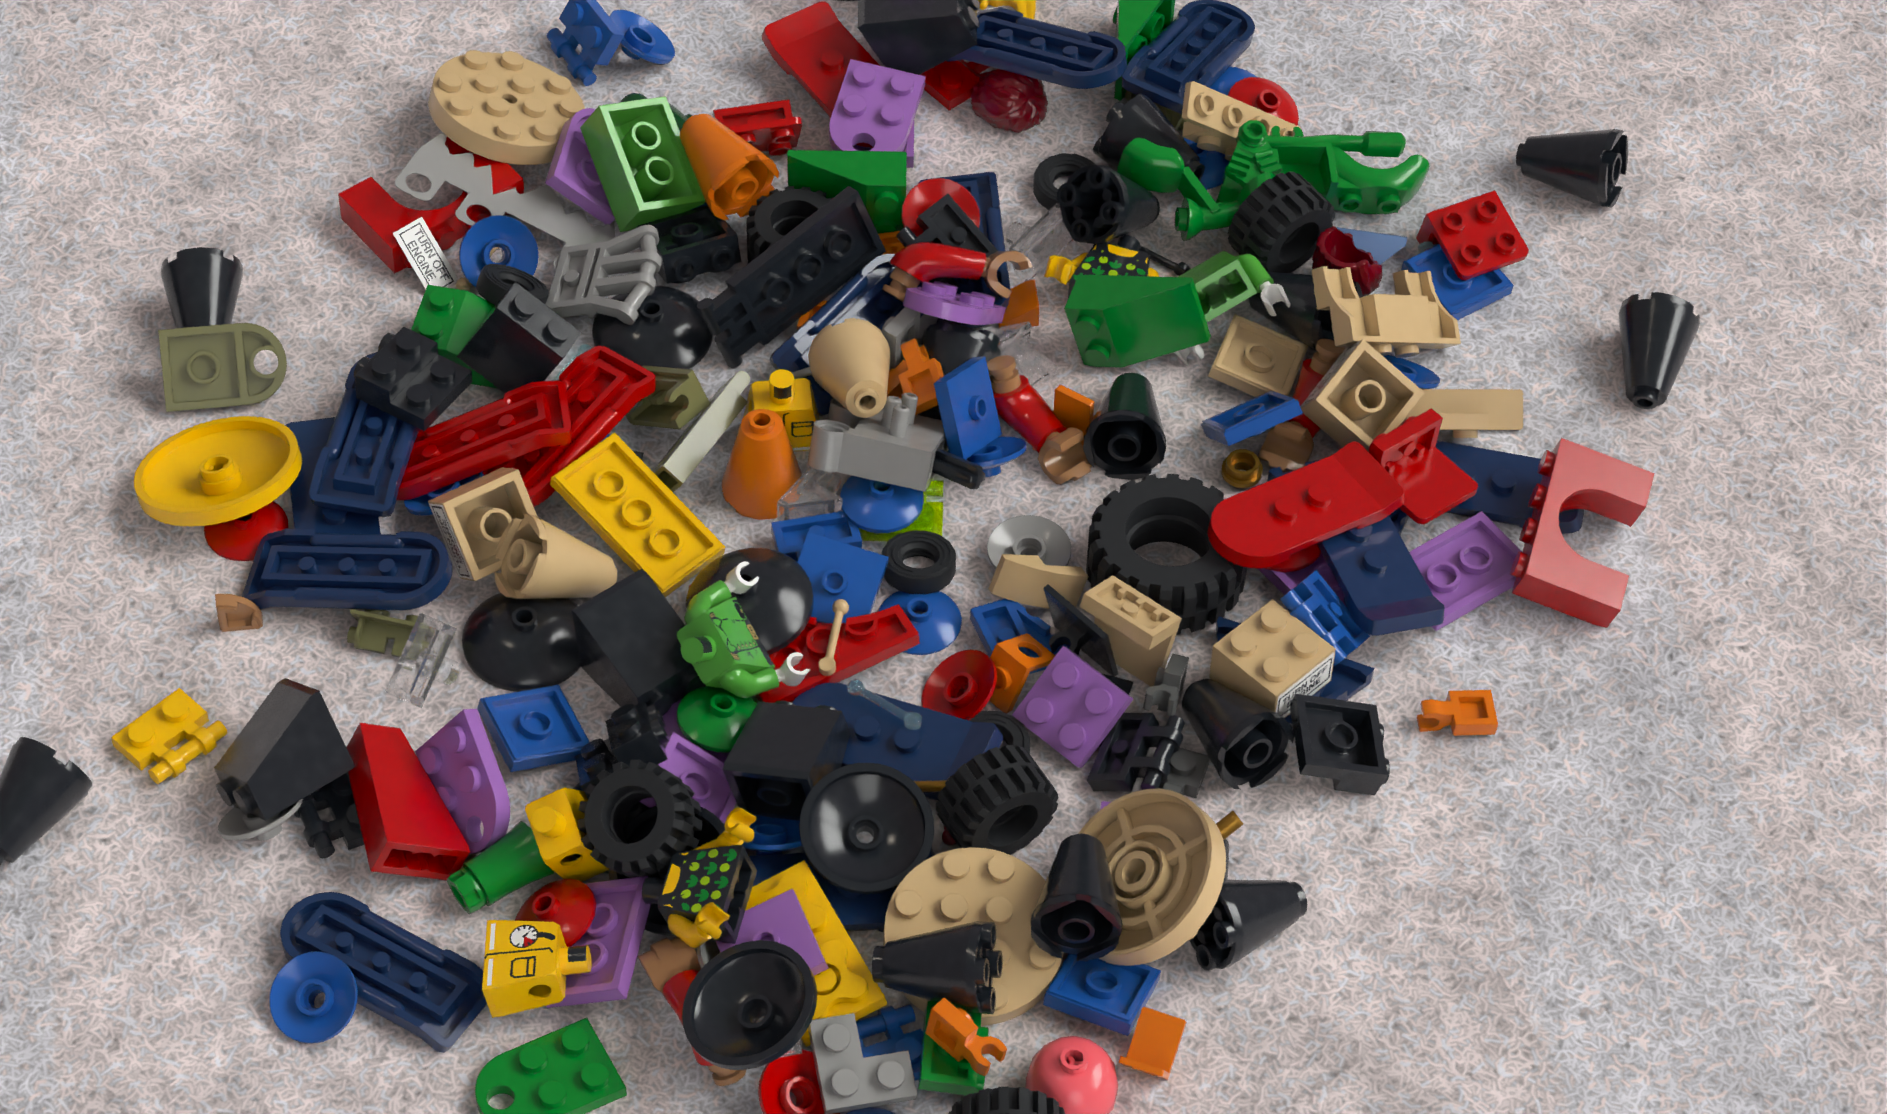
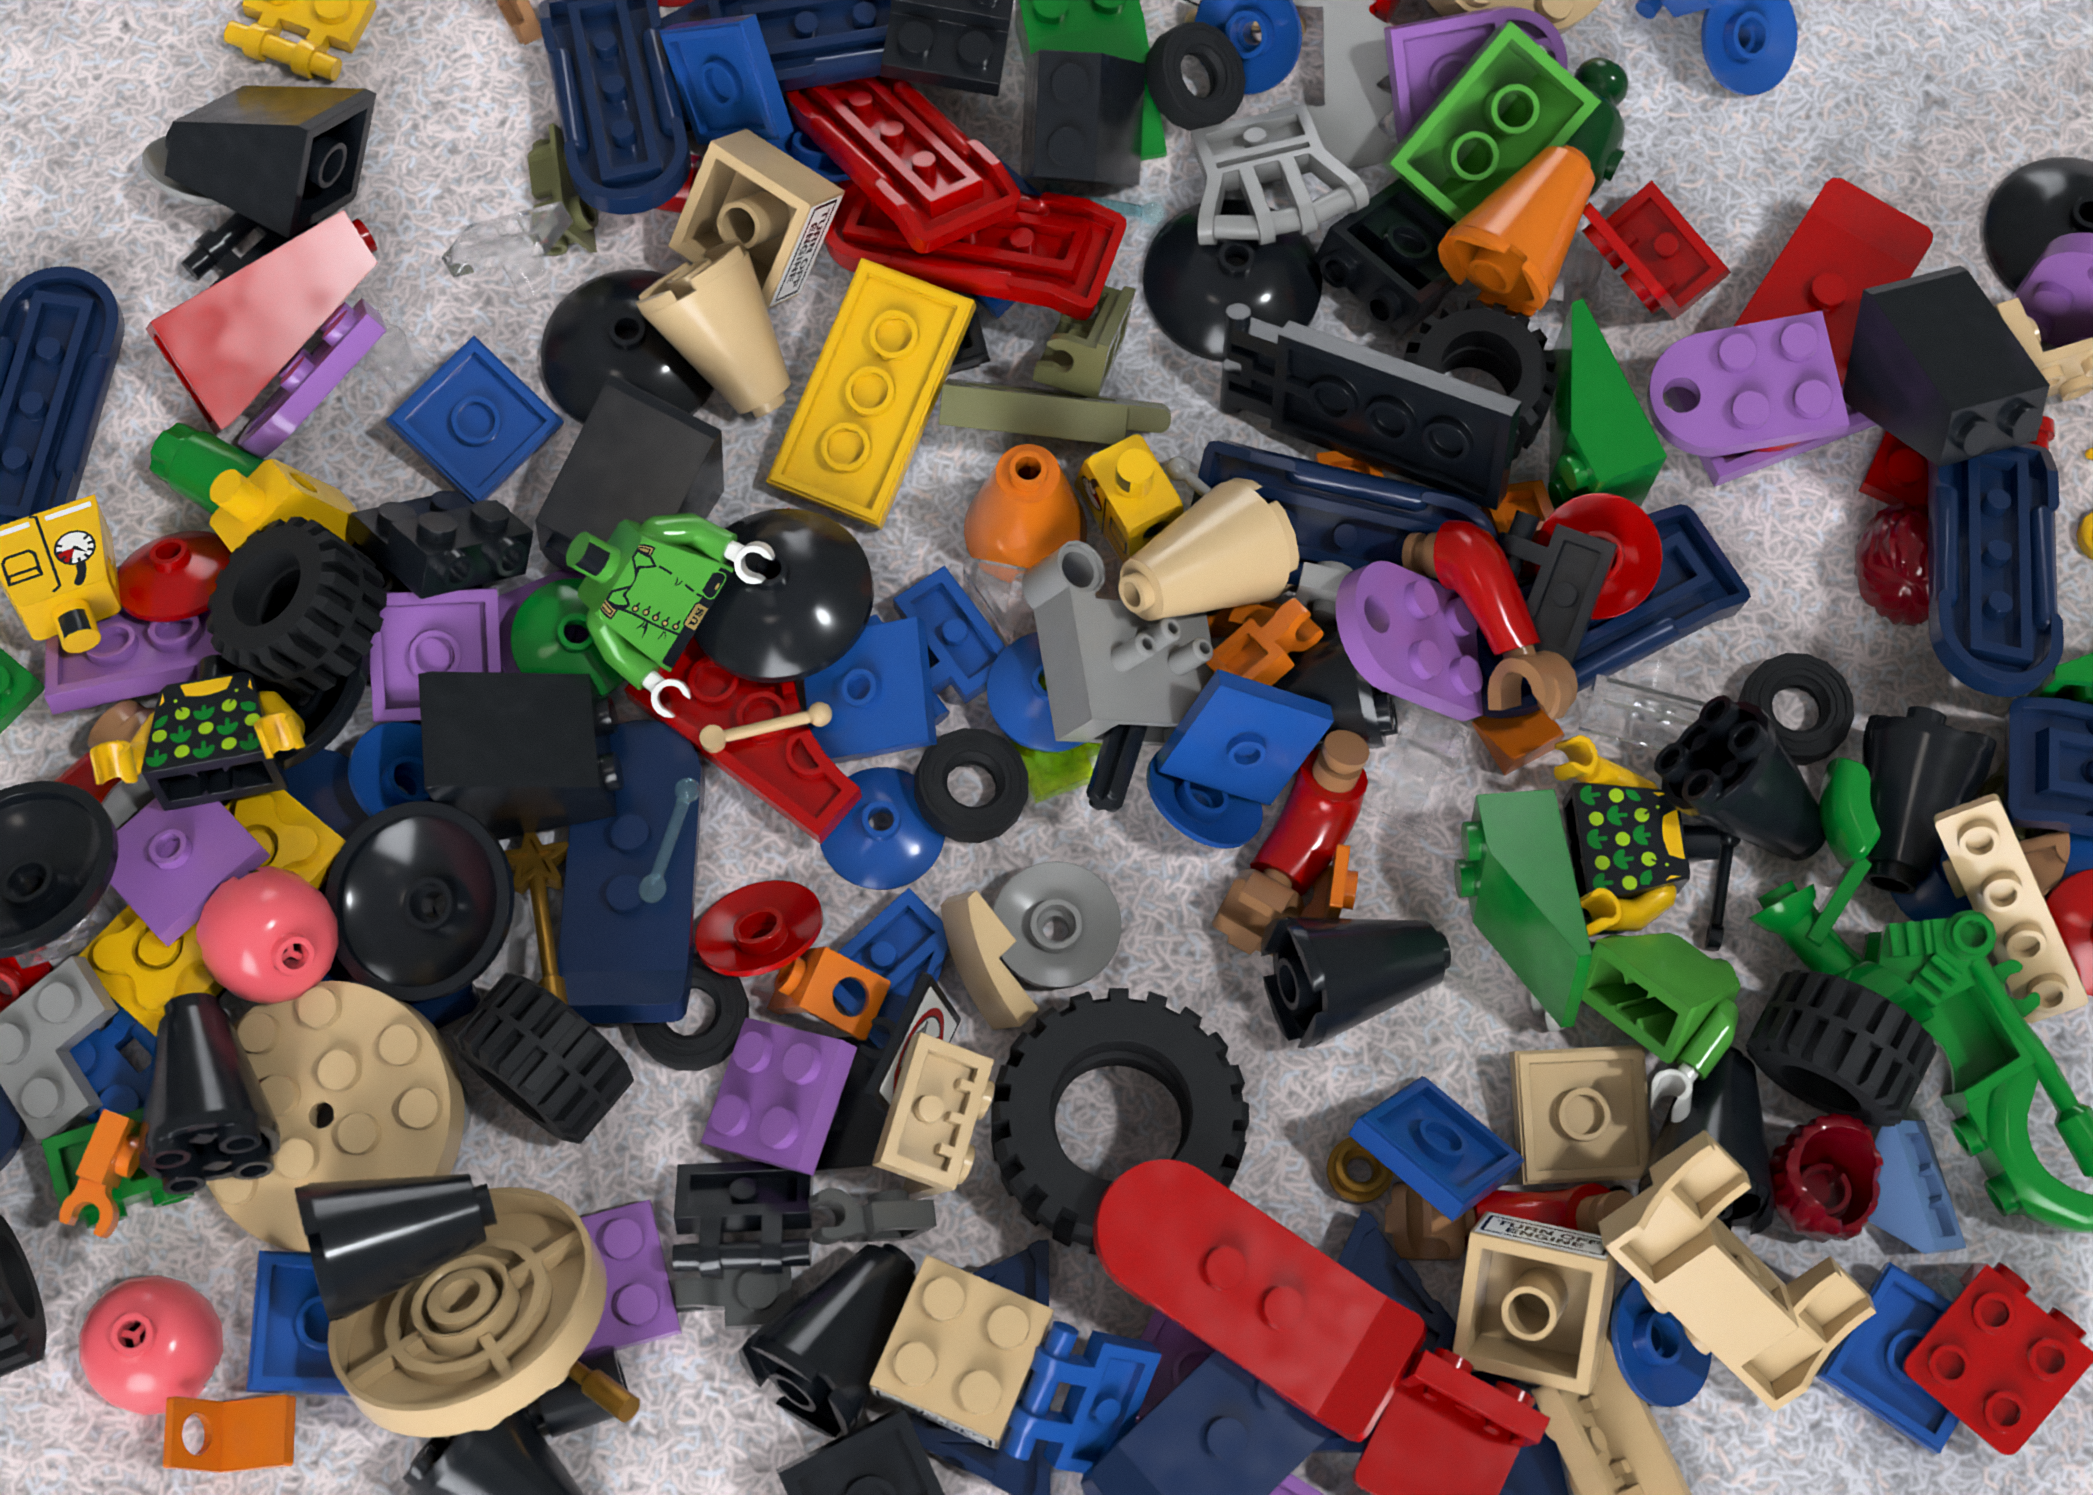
camera: 65 degrees right, 20 degrees up
(386, 495) = (726, 78): none -> blue plate
(854, 907) = (267, 936): none -> coral cylinder

